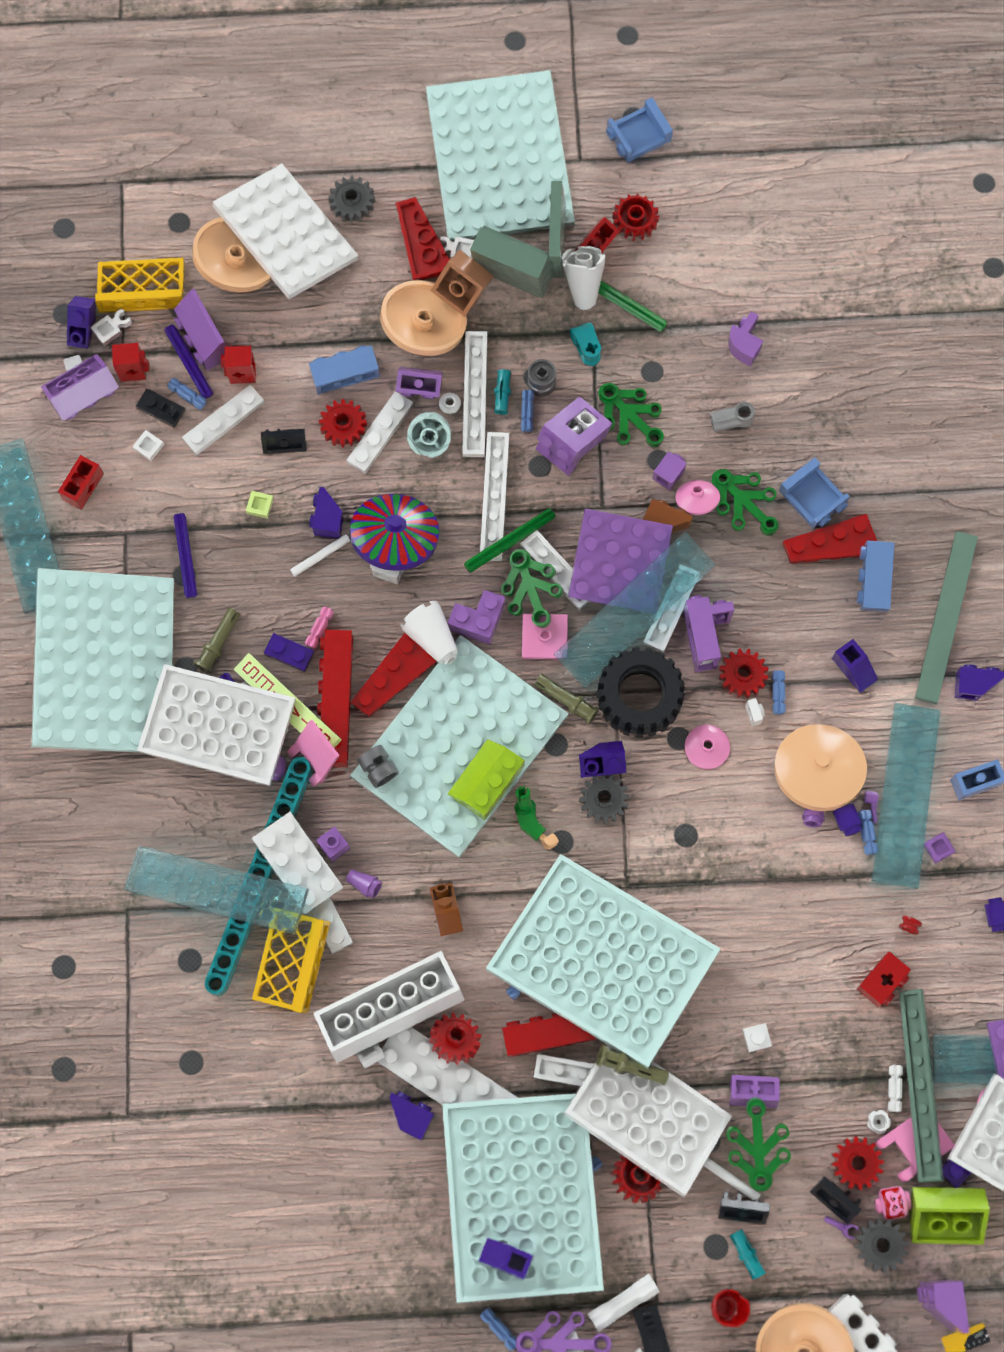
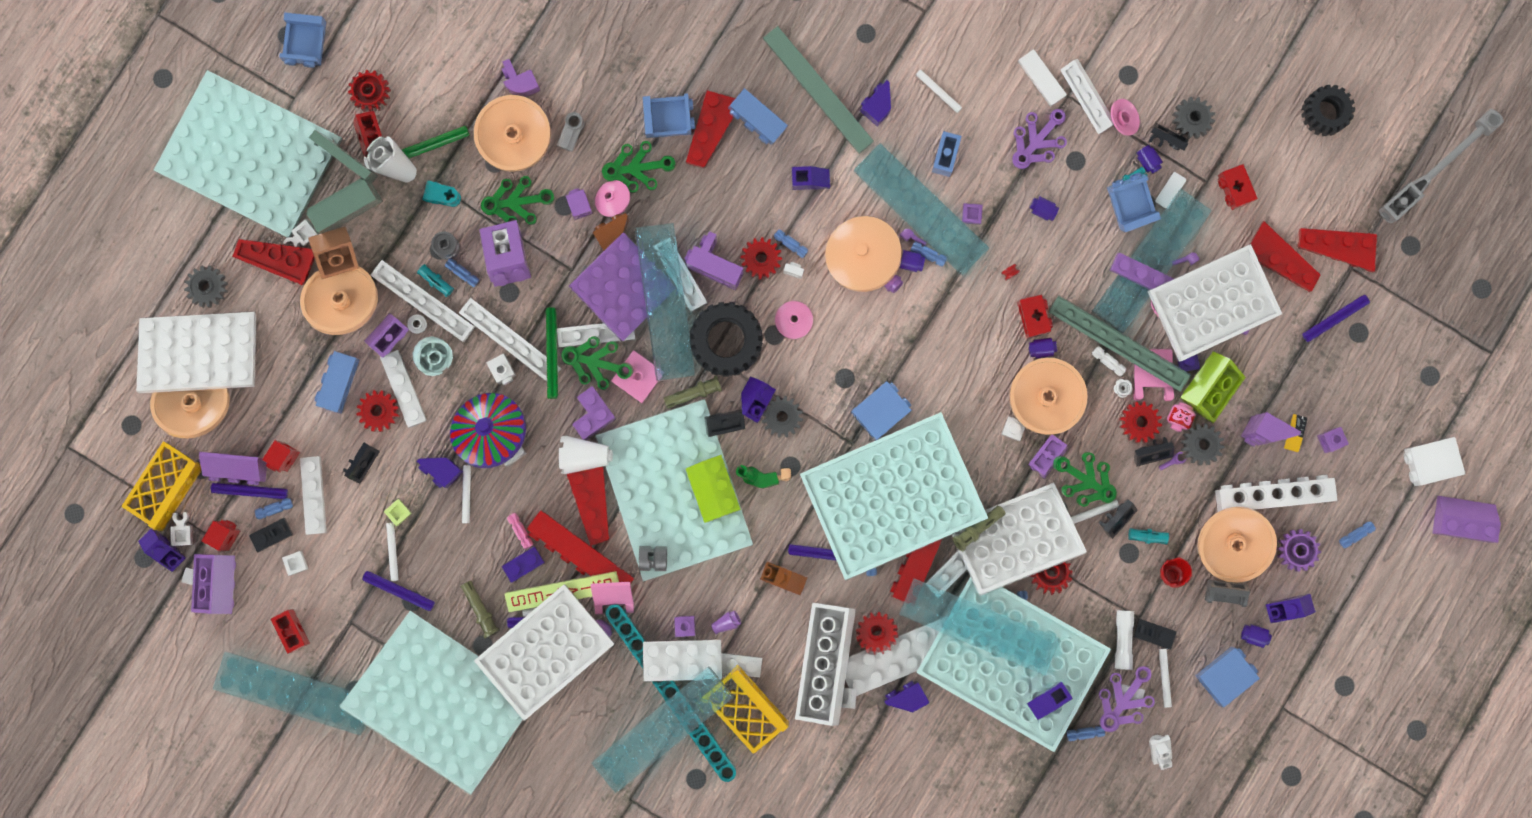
camera: 60 degrees left, 10 degrees up
(216, 527) = (392, 551): none -> white bar
(461, 506) = (501, 369): none -> white brick
(490, 918) = (813, 552): none -> dark purple axle
(532, 1136) = (979, 627): none -> clear light blue plate
(558, 746) = (724, 423): none -> black plate
(680, 890) = (881, 410): none -> medium blue panel
(691, 365) = (512, 133): none -> light nougat dish
(814, 1048) = (1048, 396): none -> light nougat dish
(858, 1010) = (1042, 348): none -> dark purple brick

